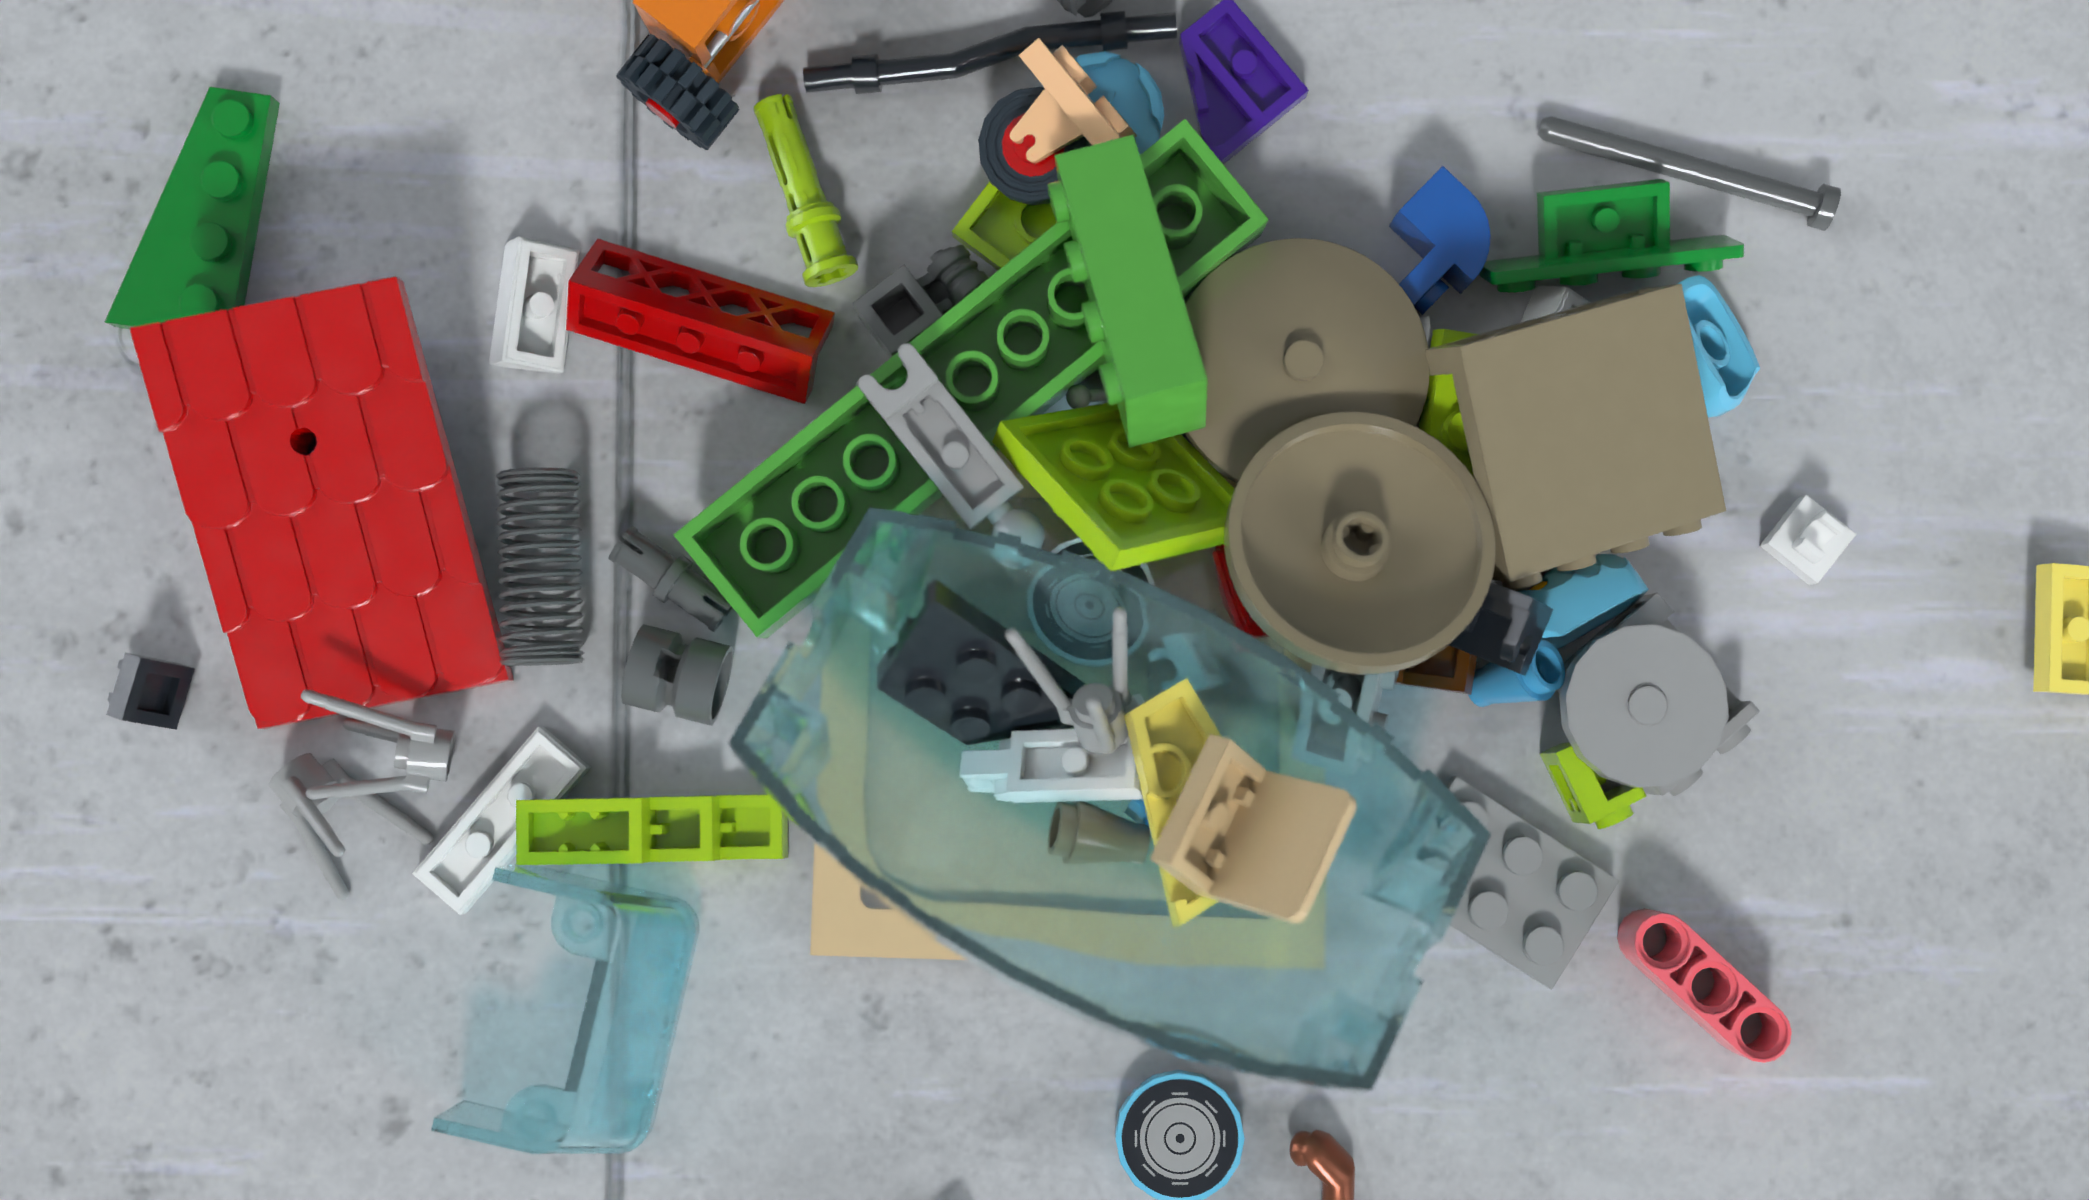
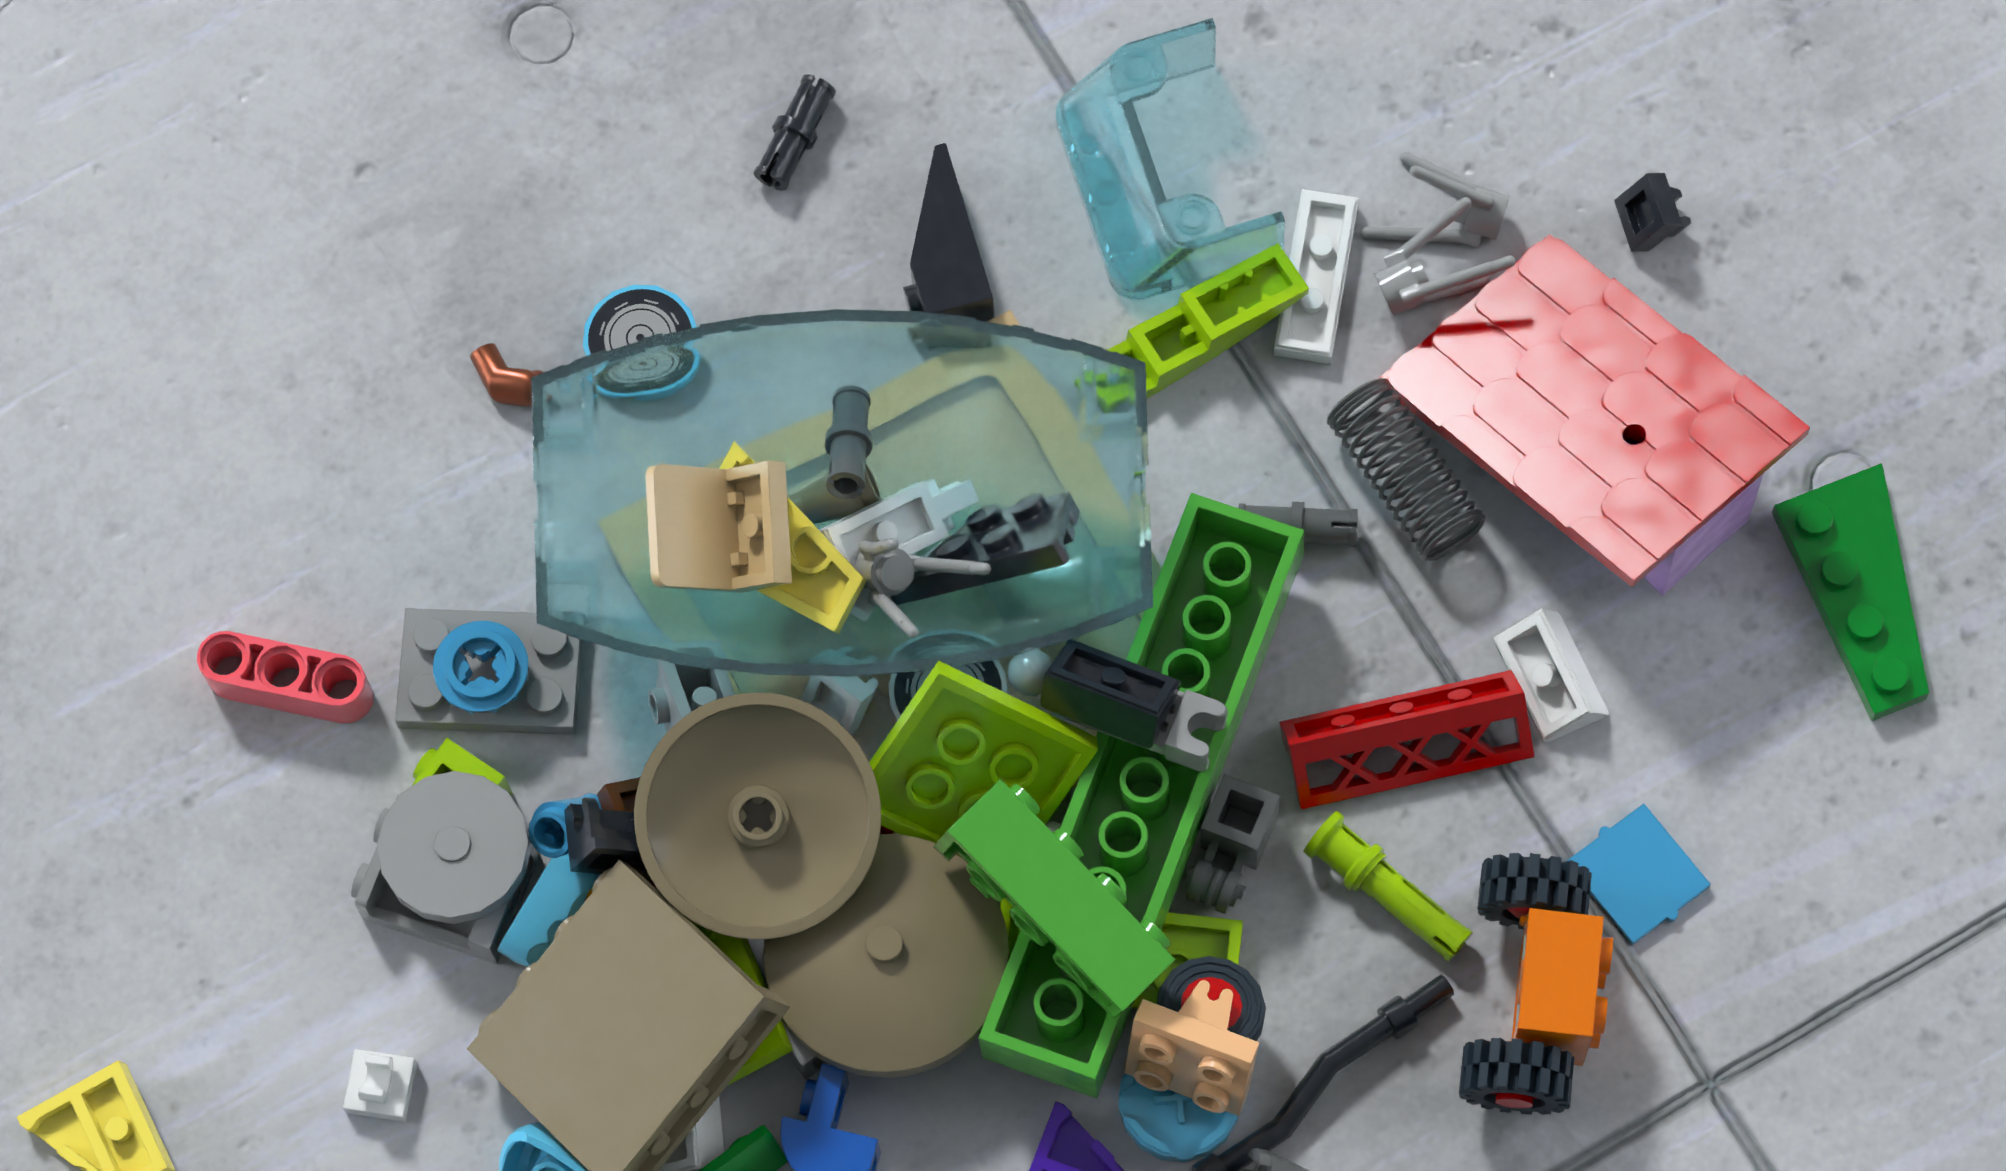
camera: 155 degrees right, 15 degrees down
(574, 84) = (1640, 874): none -> dark azure piece
(698, 683) = (1224, 456): dark grey wheel -> none
(843, 1037) = (945, 255): none -> black slope
(958, 458) = (1108, 693): none -> black slope
(1061, 868) = (848, 442): none -> dark grey pin
(1546, 892) = (481, 642): none -> dark azure gear

